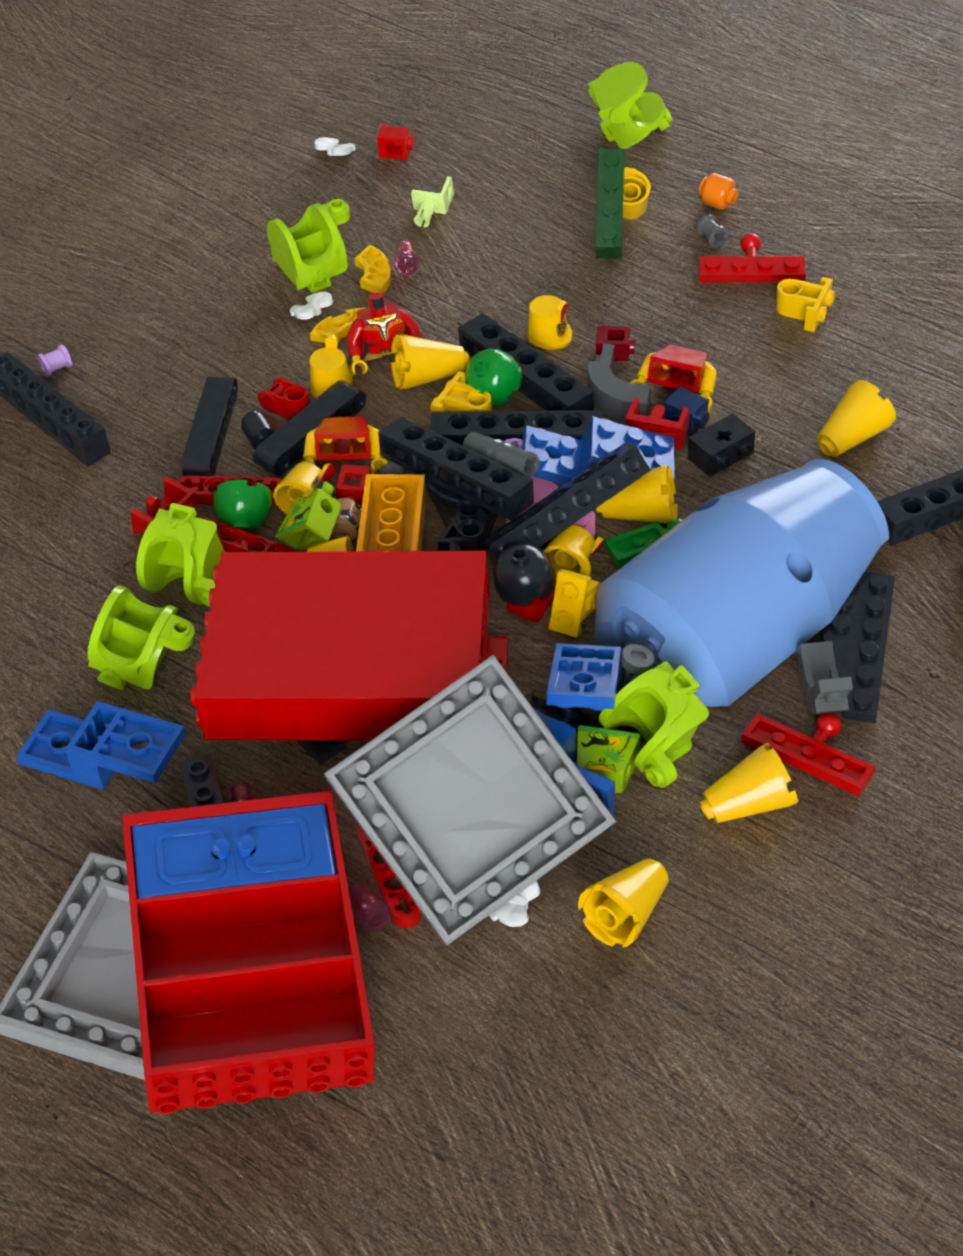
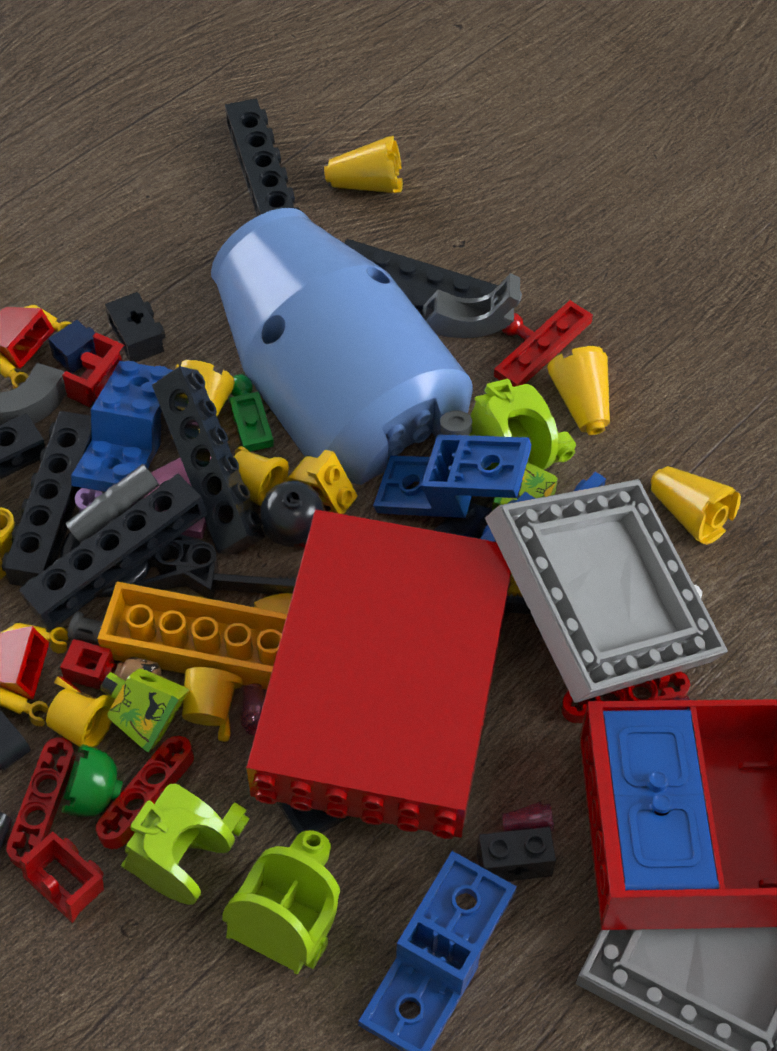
camera: 85 degrees left, 10 degrees up
(855, 419) = (142, 214): yellow cone -> none

